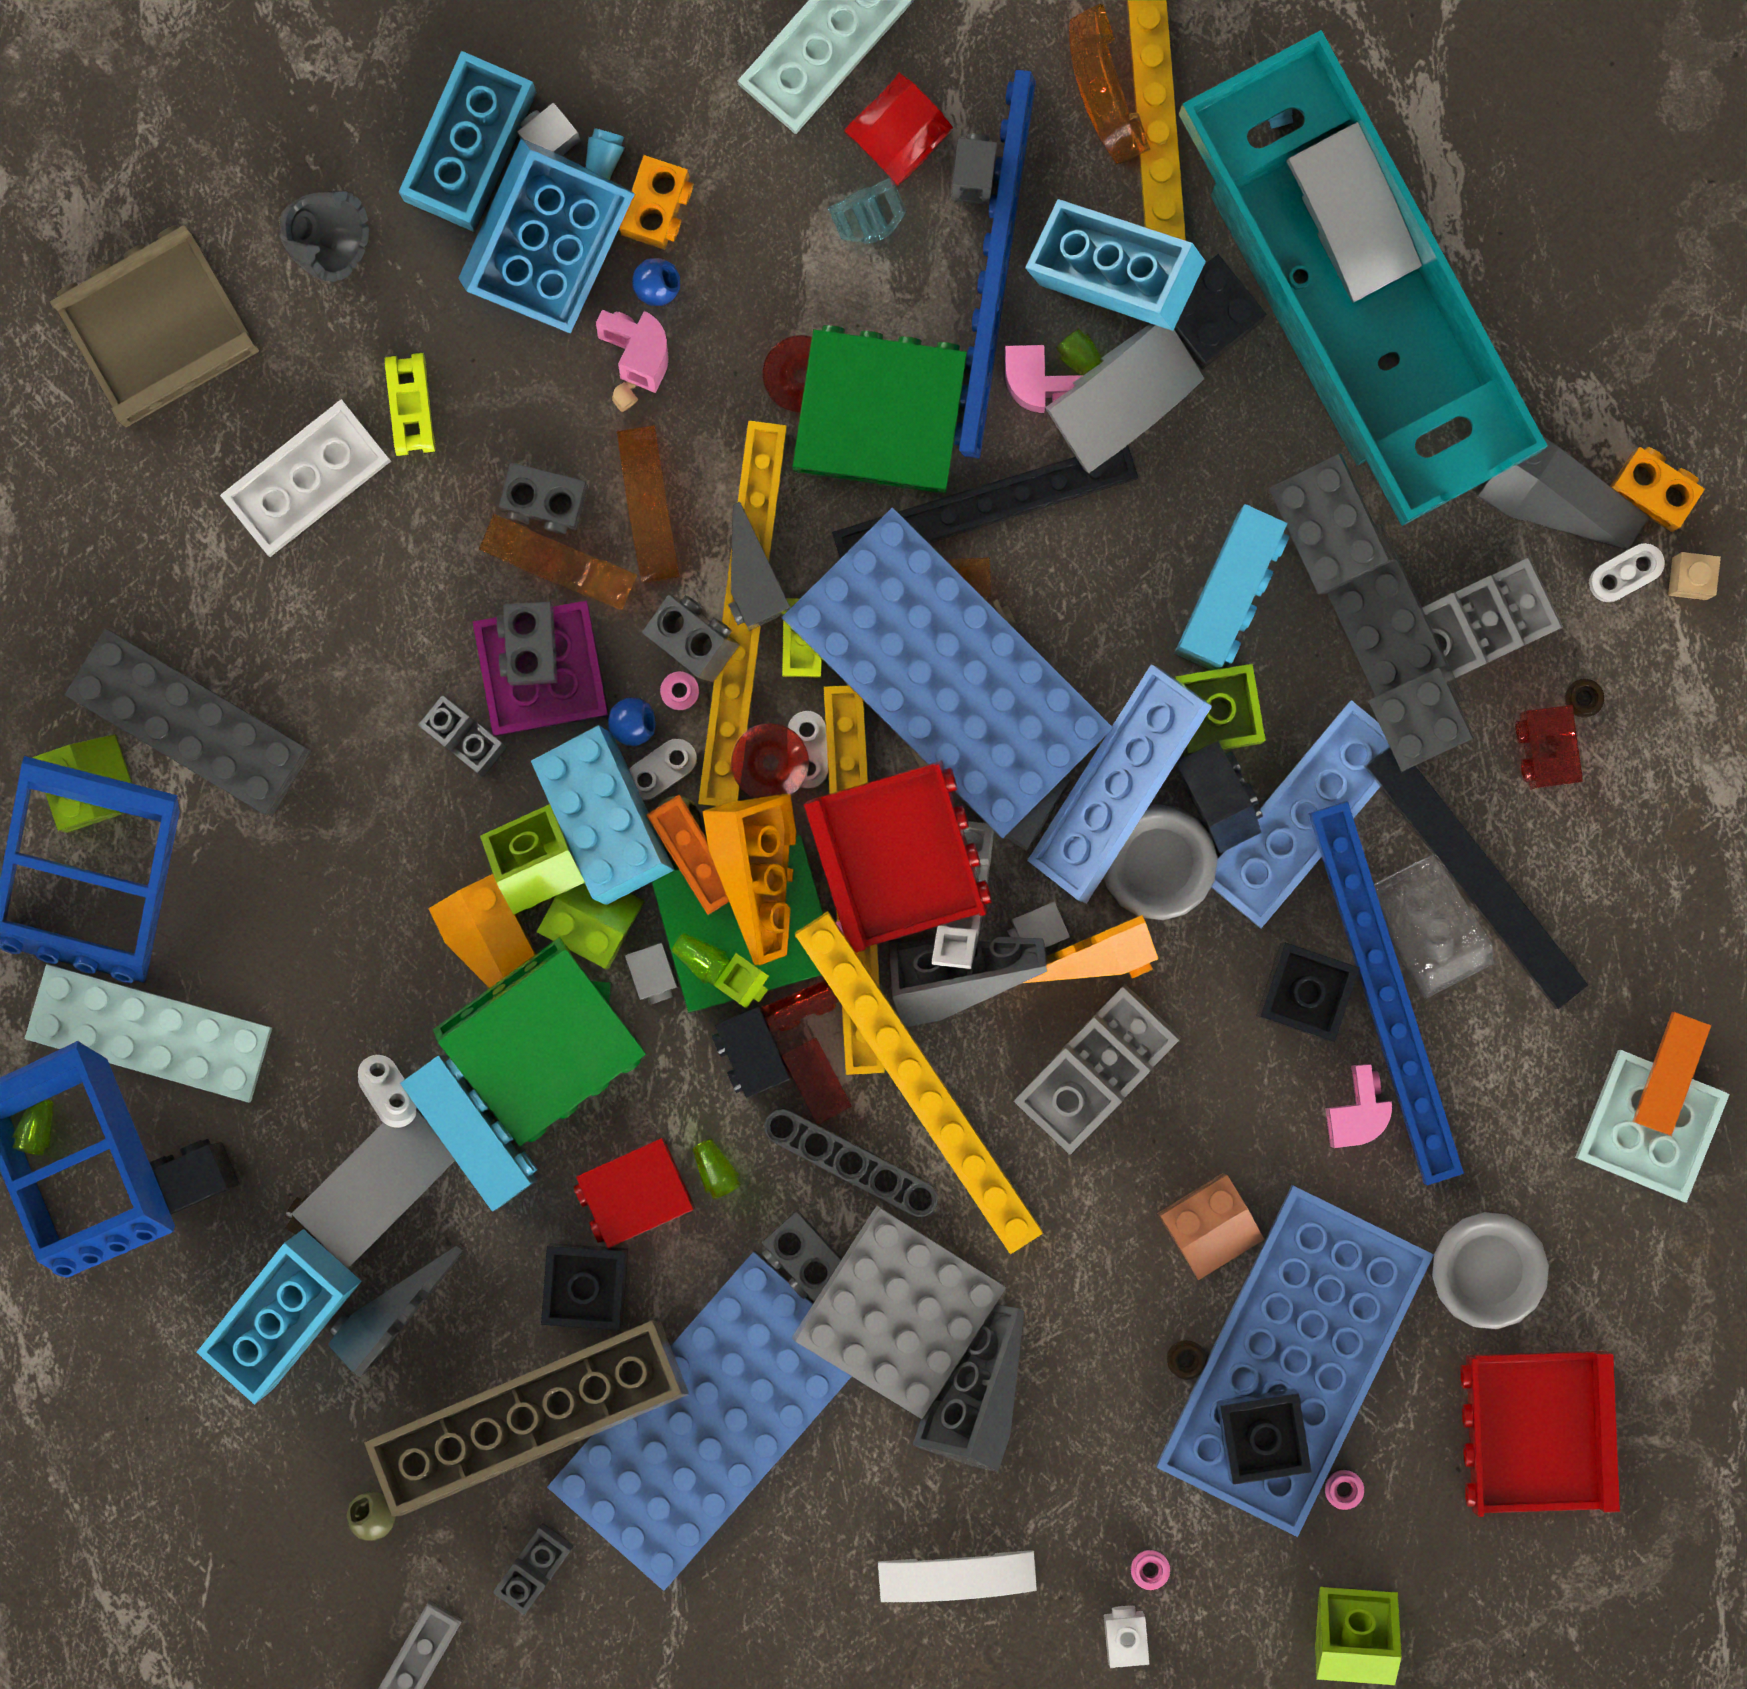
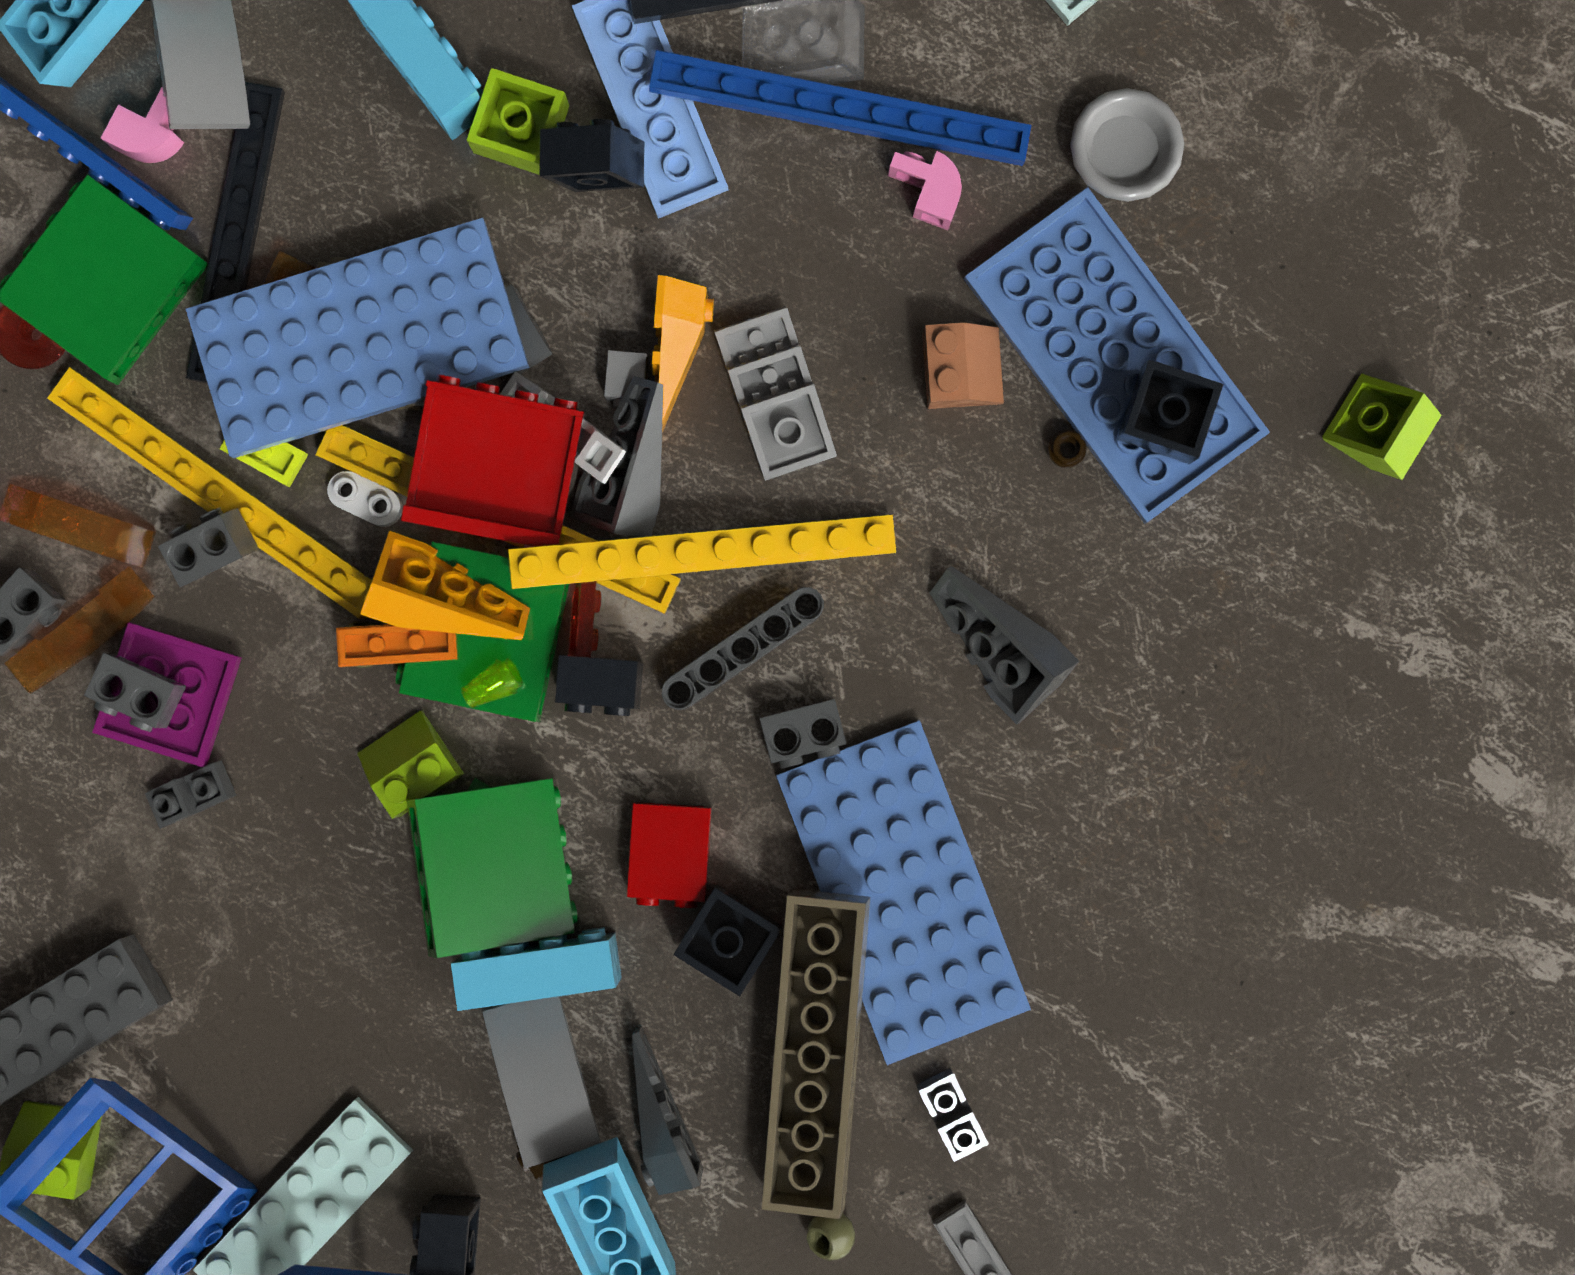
camera: 65 degrees left, 0 degrees up
(385, 1089) = (461, 1025): white plate -> none
(483, 930) = (365, 864): light orange wedge -> none
(531, 859) = (326, 789): lime brick -> none
(602, 815) = (320, 706): medium azure brick -> none
(632, 721) = (255, 638): blue piece -> none
(652, 973) = (485, 736): light grey brick -> none
(663, 772) = (315, 634): white plate -> none
(679, 678) = (264, 585): bright pink plate -> none
(715, 1170) = (687, 771): clear neon green cone -> none
(742, 981) = (530, 658): lime tile -> none
(753, 582) = (189, 465): dark grey slope -> none
(769, 741) = (336, 531): clear red dish -> none
(816, 1080) = (656, 641): clear red plate -> none
(898, 1312) = (895, 675): light grey plate -> none
(957, 1577) = (1152, 746): white slope -> none
(1079, 352) = (142, 81): clear neon green cone -> none
(1119, 783) = (533, 237): light blue plate -> none
(1126, 1637) = (1280, 626): white brick -> none
(1150, 1582) = (1243, 572): bright pink plate -> none
(1163, 865) = (622, 243): light grey piece -> none
(1307, 992) = (803, 174): black brick -> none
(1350, 1500) = (1259, 366): bright pink plate -> none
(1541, 1432) = (1288, 176): red panel -> none

